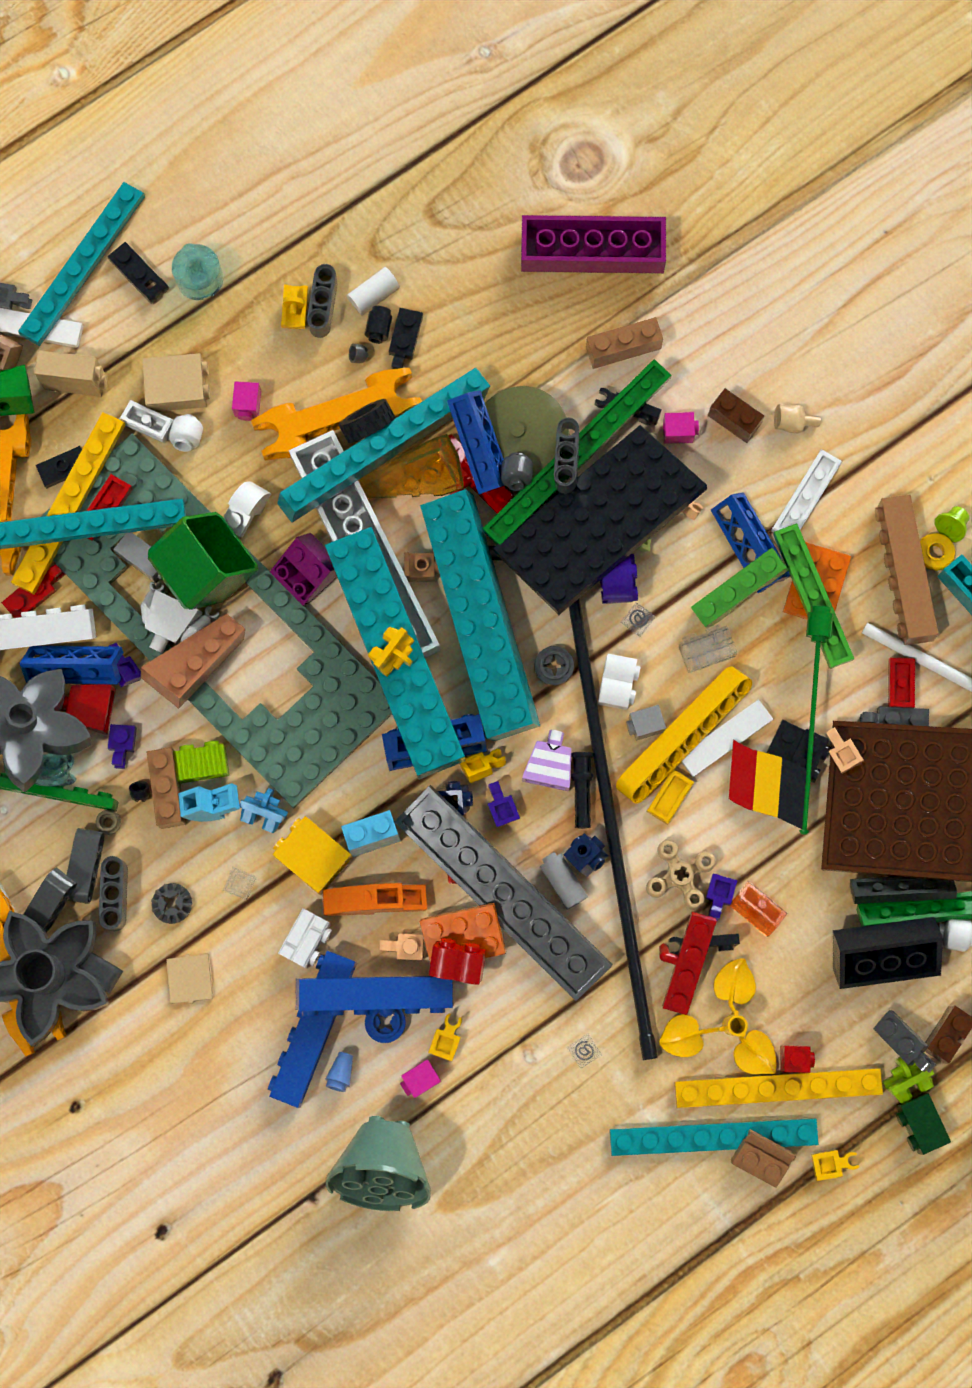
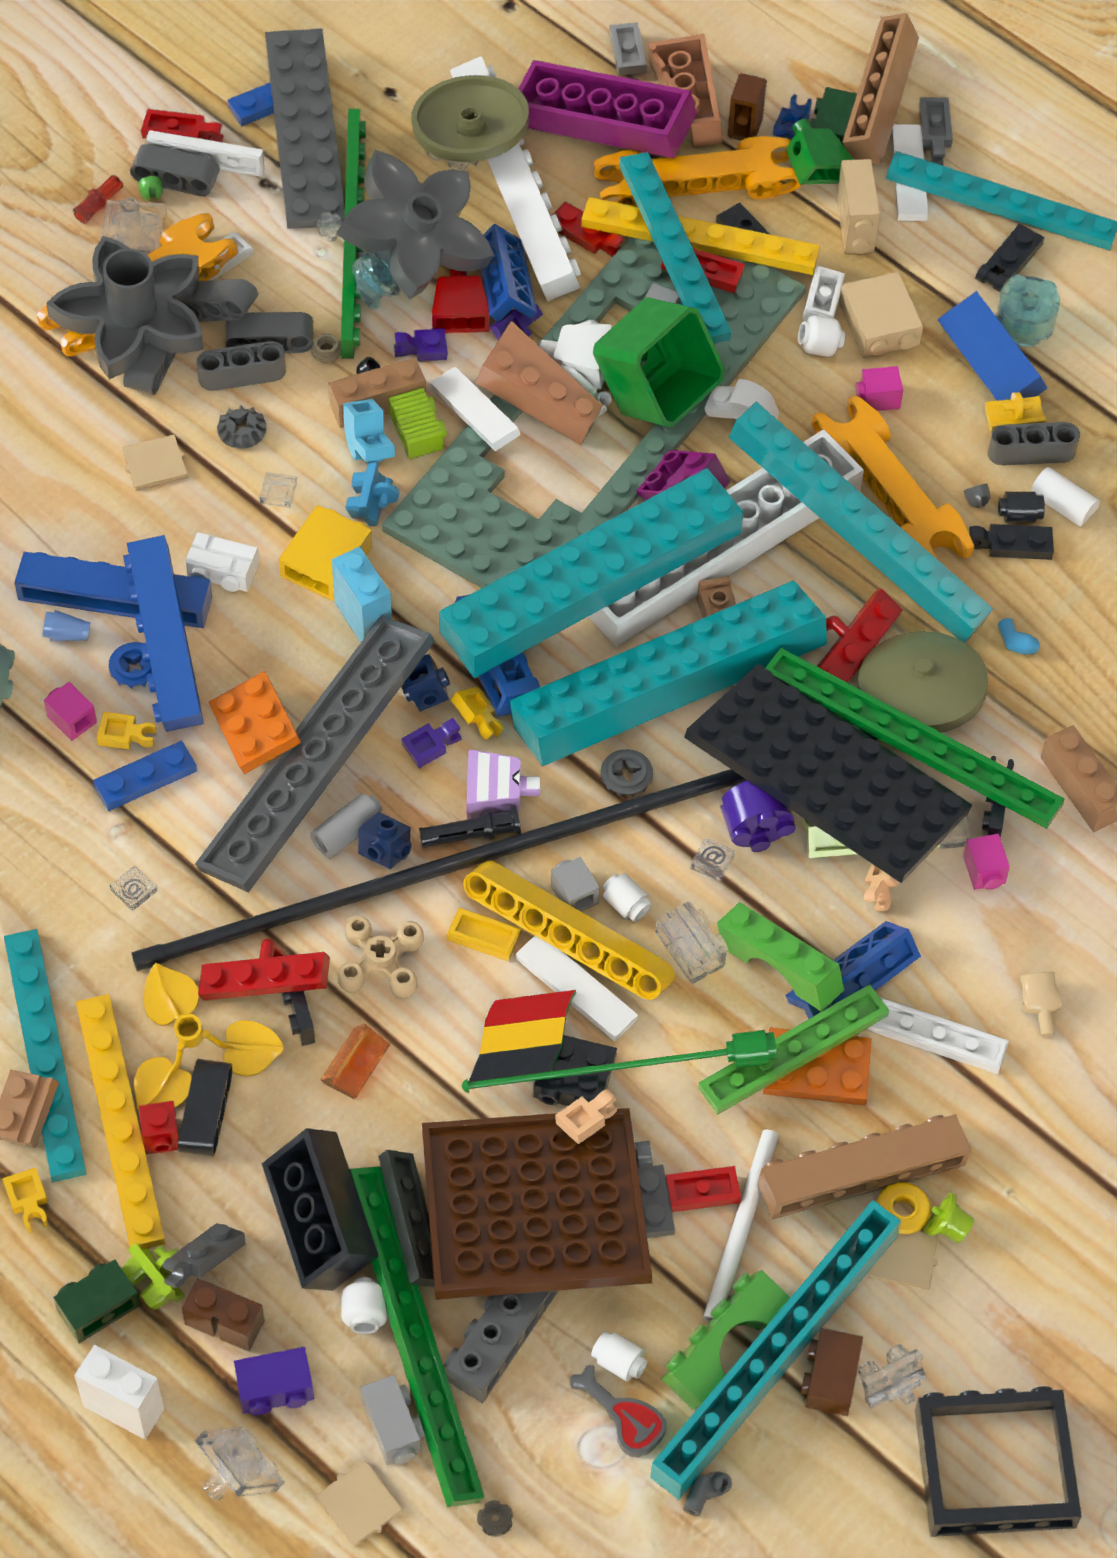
camera: 75 degrees right, 20 degrees down
(201, 713) = (475, 408): none -> white tile
(230, 309) = (991, 350): none -> blue brick
(366, 420) = (883, 495): black tyre -> none
(374, 899) = (284, 625): orange slope -> none
(394, 653) = (585, 549): yellow hips -> none
(407, 947) = (232, 670): light nougat plate -> none
(421, 470) = (838, 575): clear yellow wedge -> none
(457, 961) = (218, 712): red brick -> none
(478, 440) = (894, 613): blue fence -> none
(486, 1028) = (145, 775): none -> blue plate
(494, 359) = (1017, 641): none -> dark azure arm
(517, 471) = (866, 671): dark grey head -> none
(566, 444) = (899, 713): dark grey beam -> none
(618, 681) = (621, 844): white brick -> none
(662, 687) = (626, 897): none -> white brick
(720, 892) = (366, 1008): dark purple plate -> none
(735, 415) = (1023, 924): reddish brown brick -> none
(782, 1023) = (205, 1107): none -> black beam

